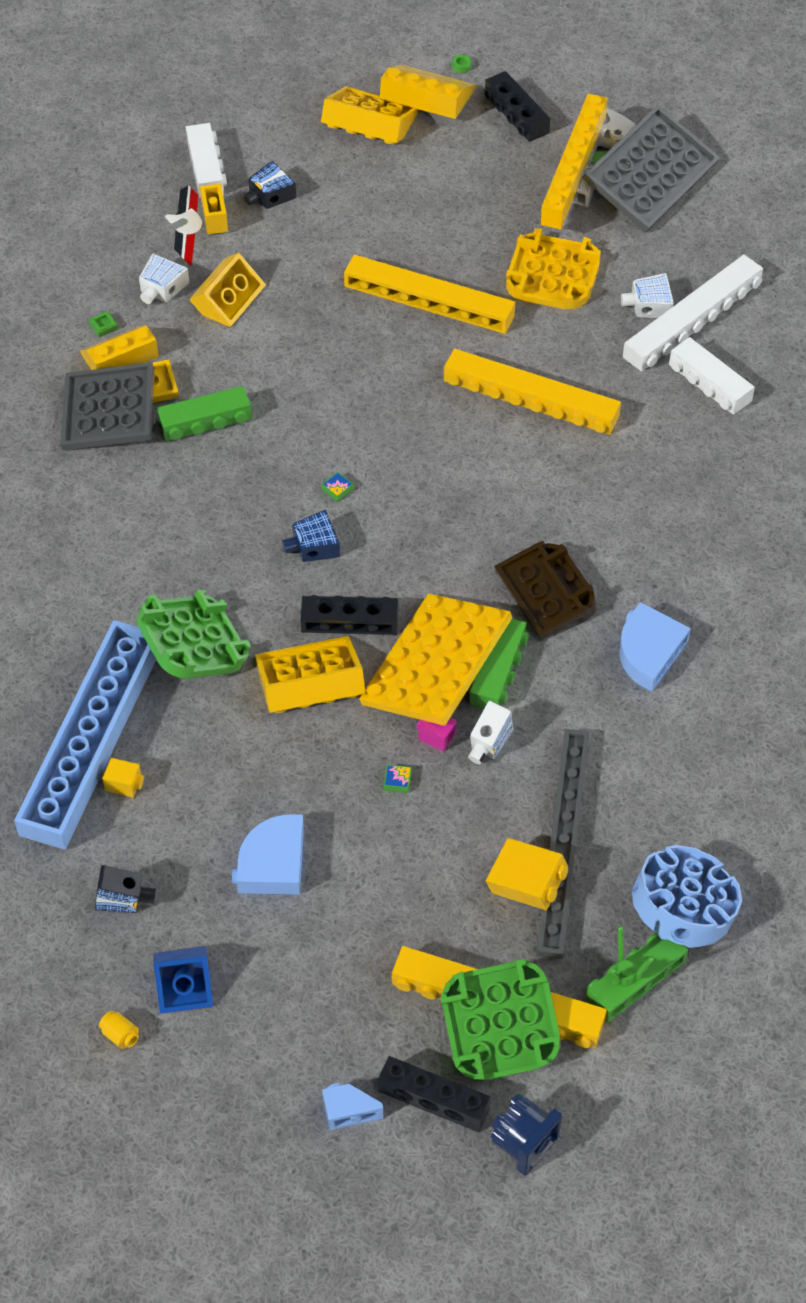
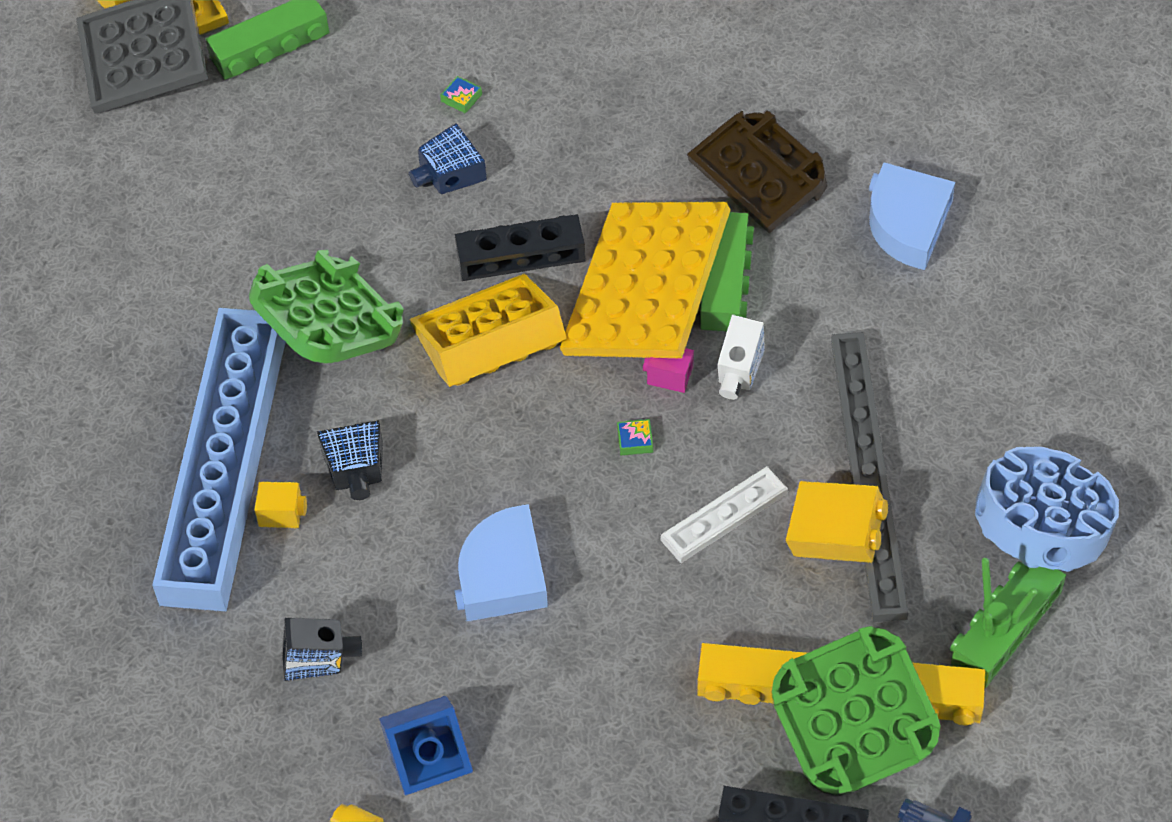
camera: 10 degrees left, 0 degrees up
(186, 752) = (353, 457): none -> black torso
(448, 851) = (724, 514): none -> white tile

